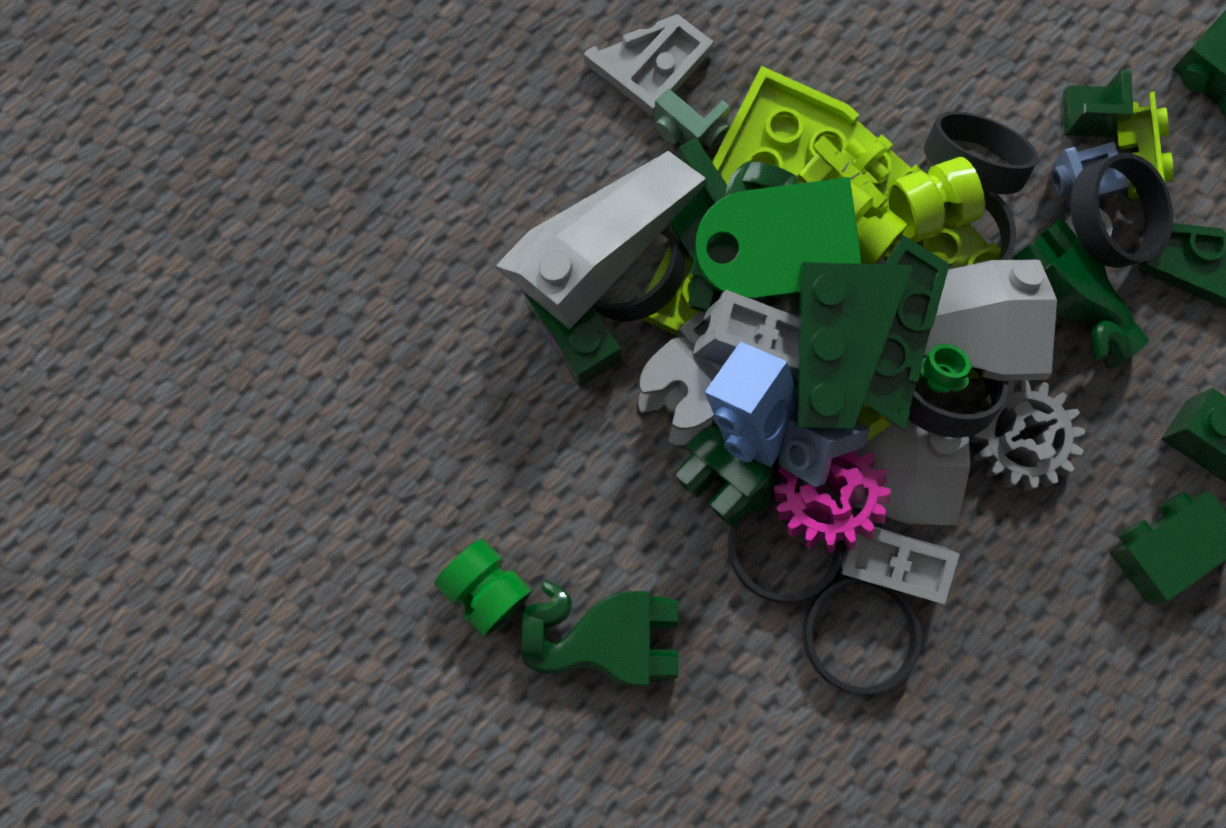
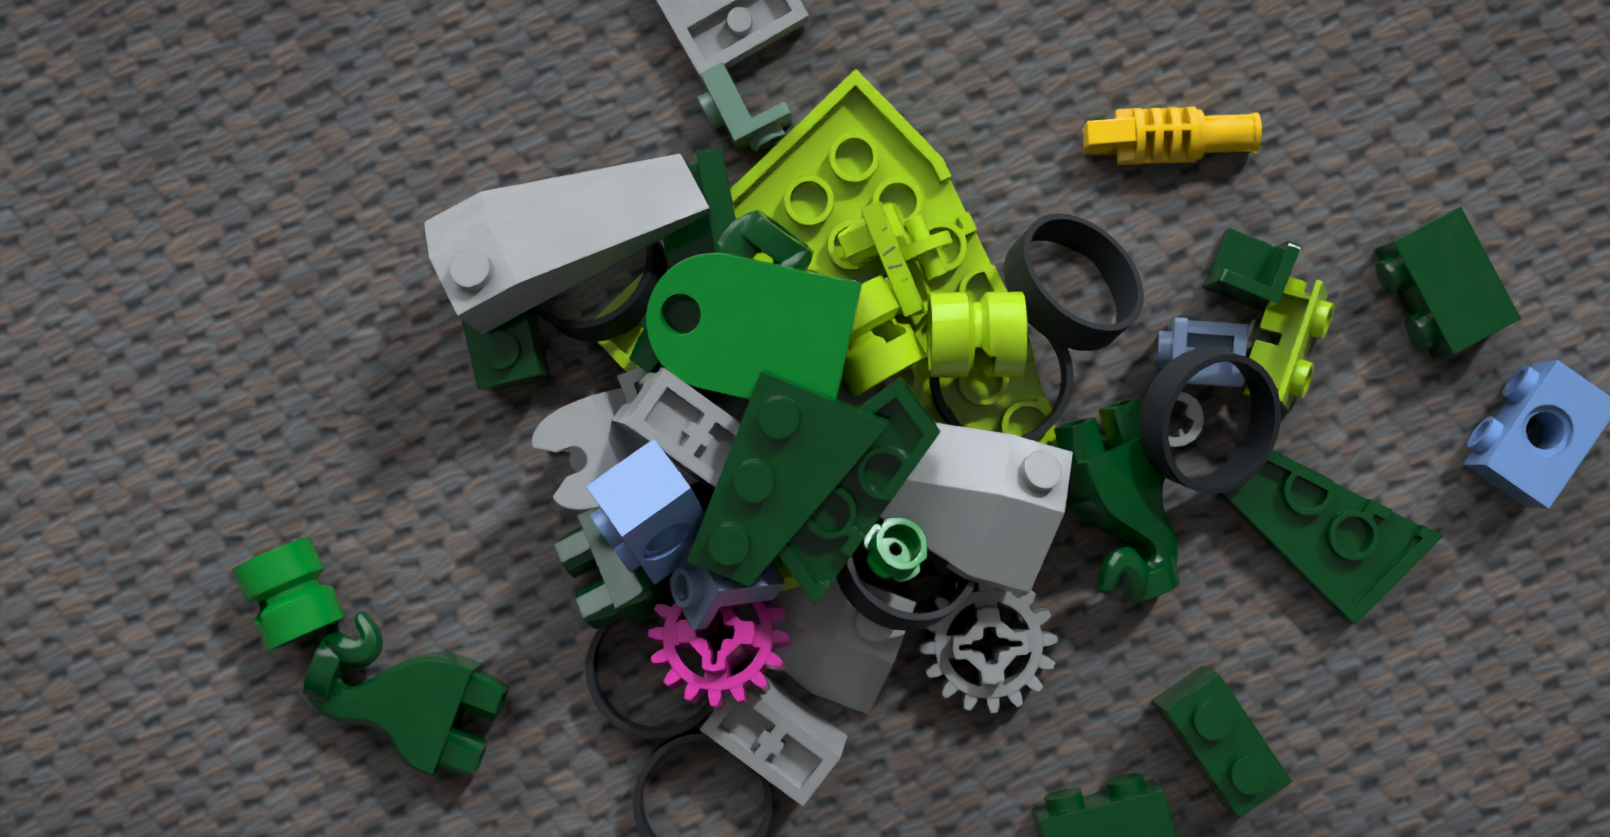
camera: 25 degrees right, 10 degrees up
(998, 38) = (1170, 135): none -> yellow hinge

